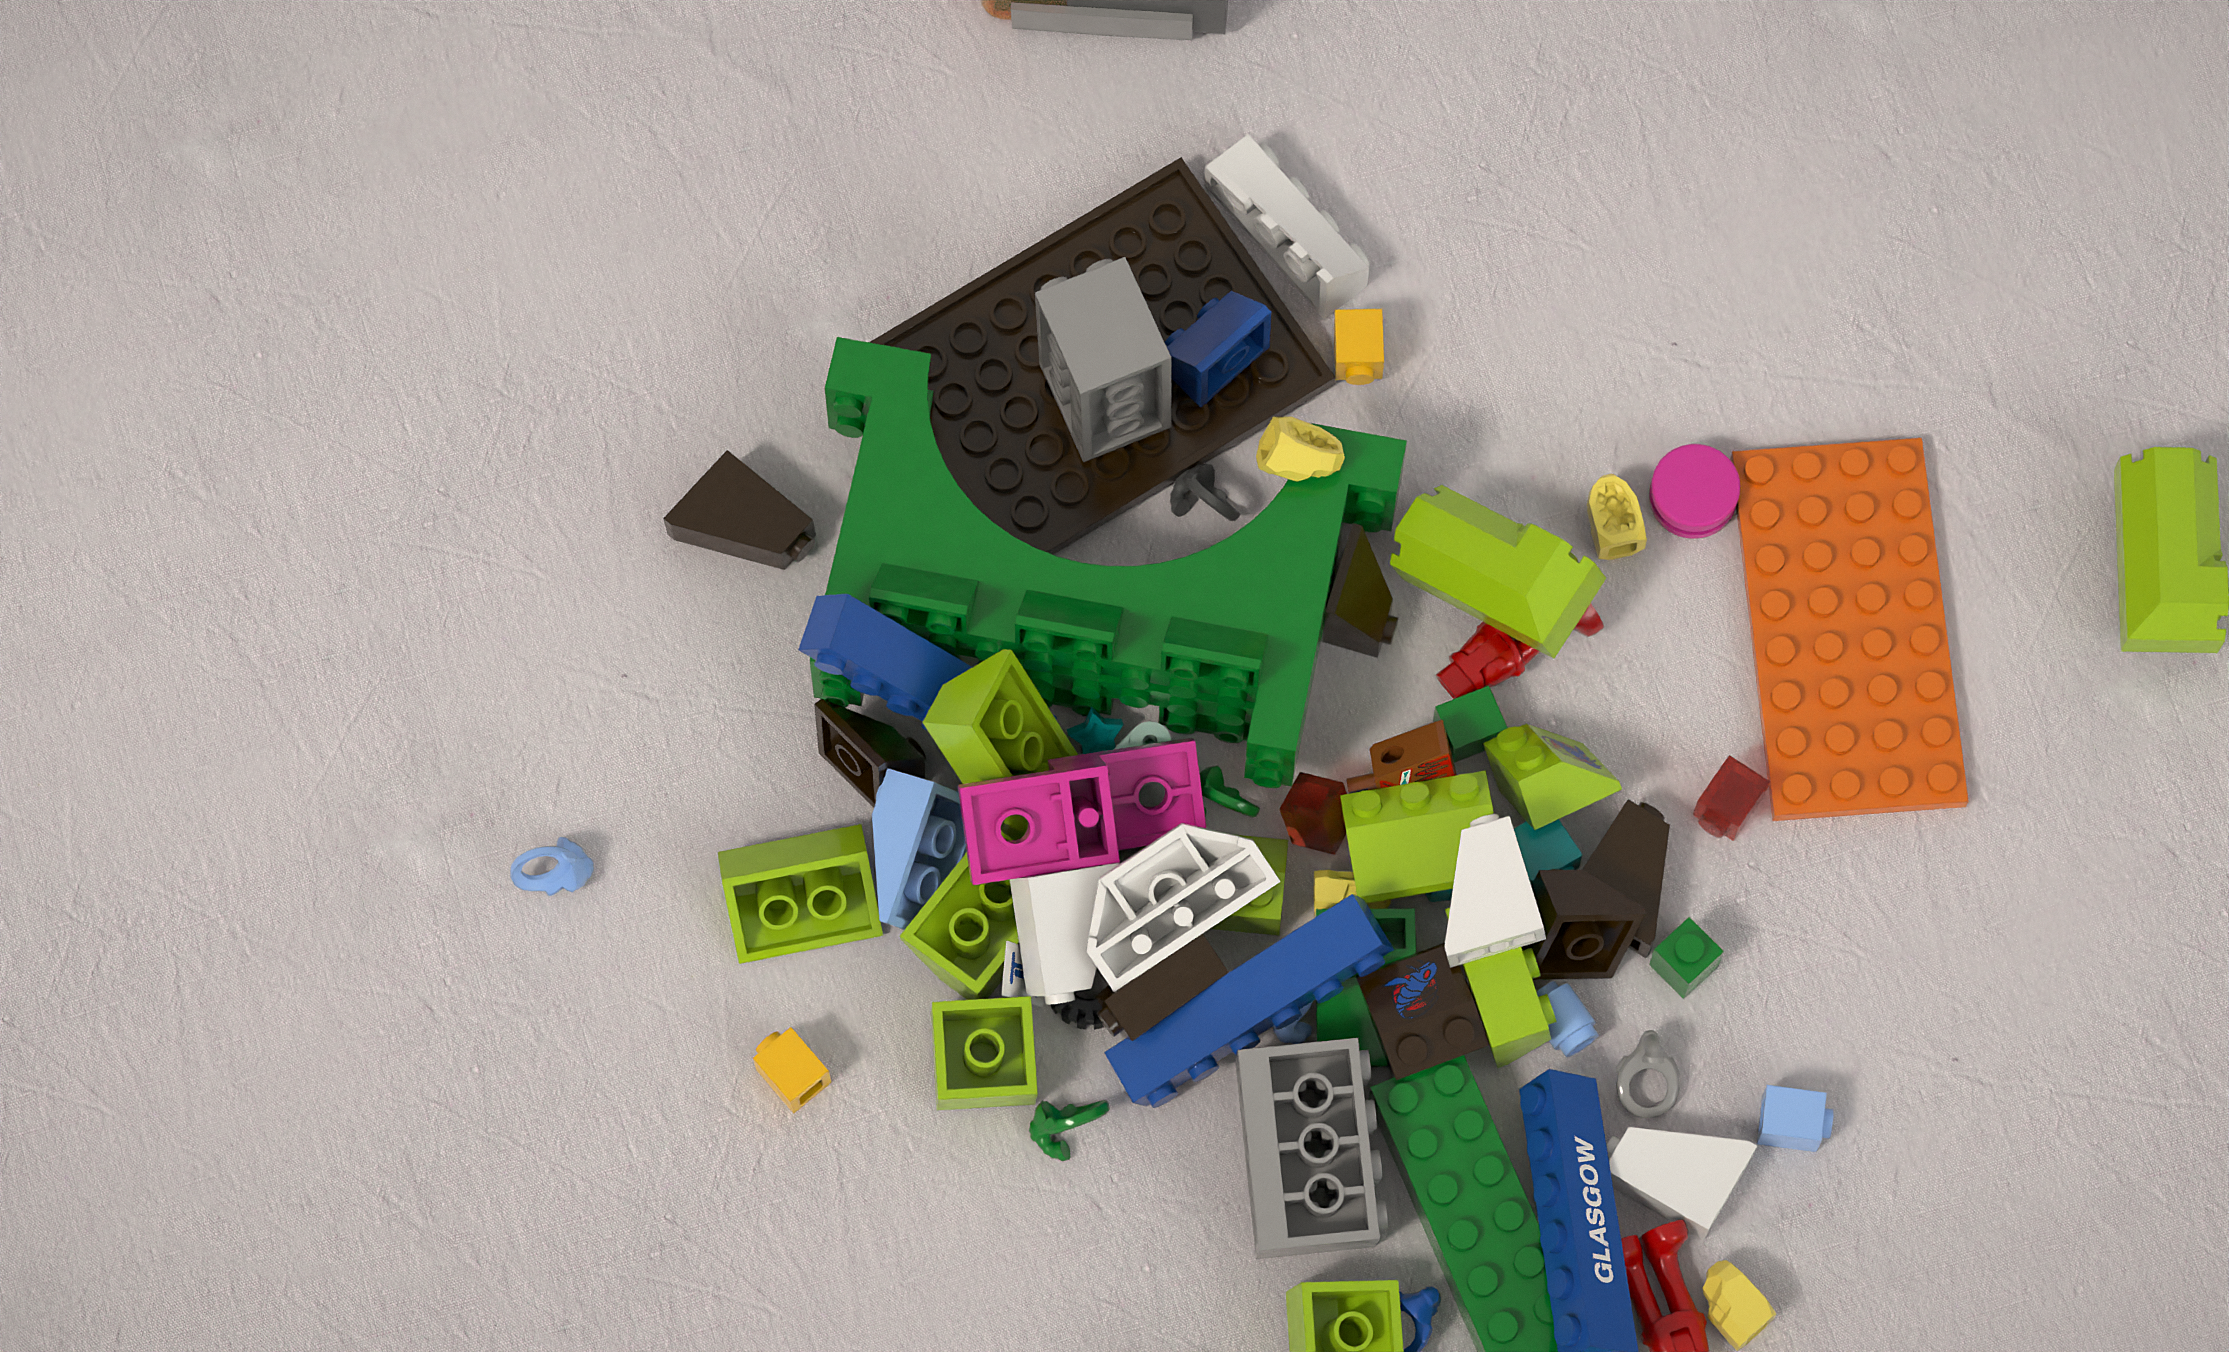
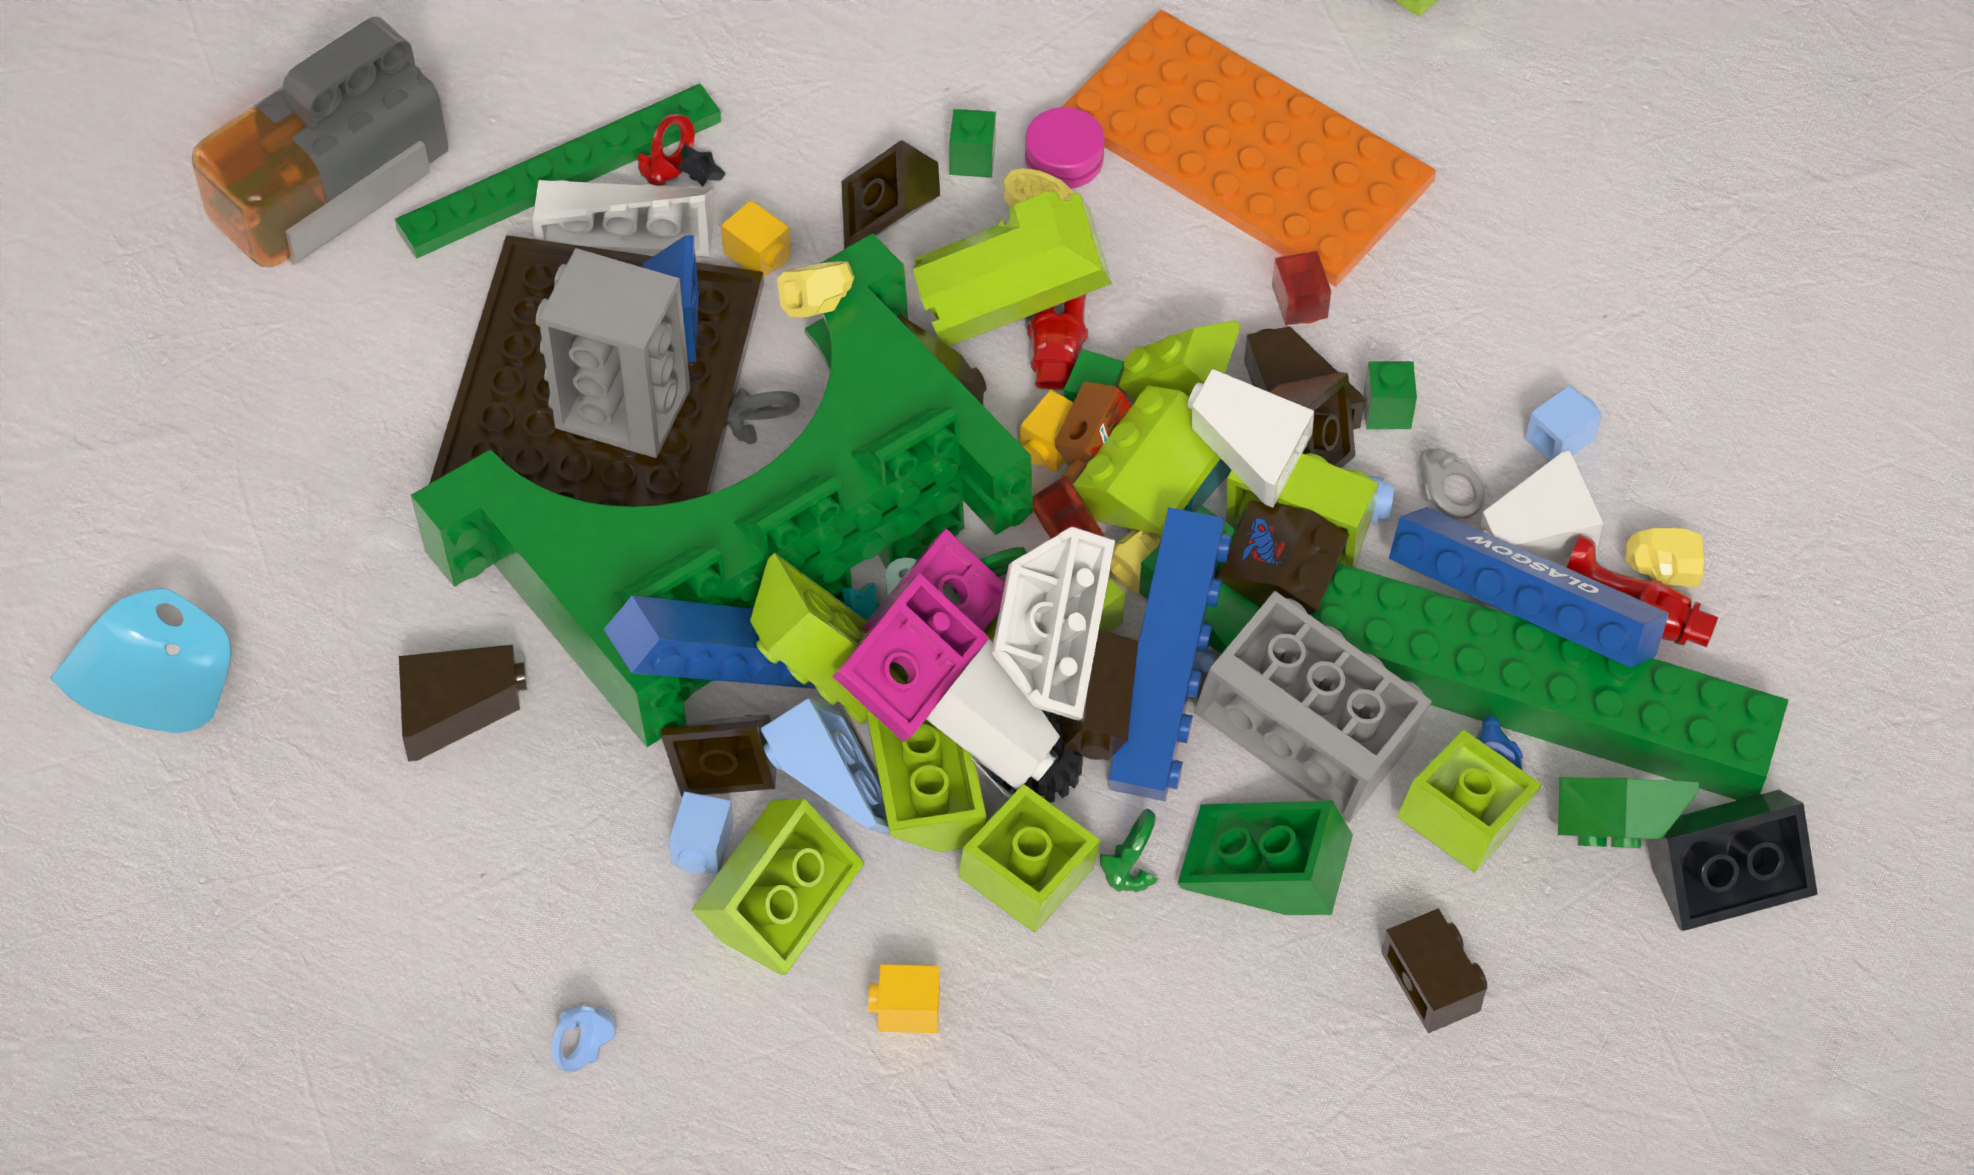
camera: 50 degrees left, 15 degrees down
(552, 285) = (130, 677): none -> medium azure piece
(790, 799) = (701, 833): none -> light blue brick
(1157, 1225) = (1269, 855): none -> green slope
(1293, 131) = (573, 161): none -> green plate
(1372, 210) = (666, 167): none -> red piece
(1391, 719) = (1041, 429): none -> yellow brick
(1396, 232) = (700, 166): none -> black piece
(1506, 401) = (887, 191): none -> dark brown slope
(1623, 418) = (972, 143): none -> green brick

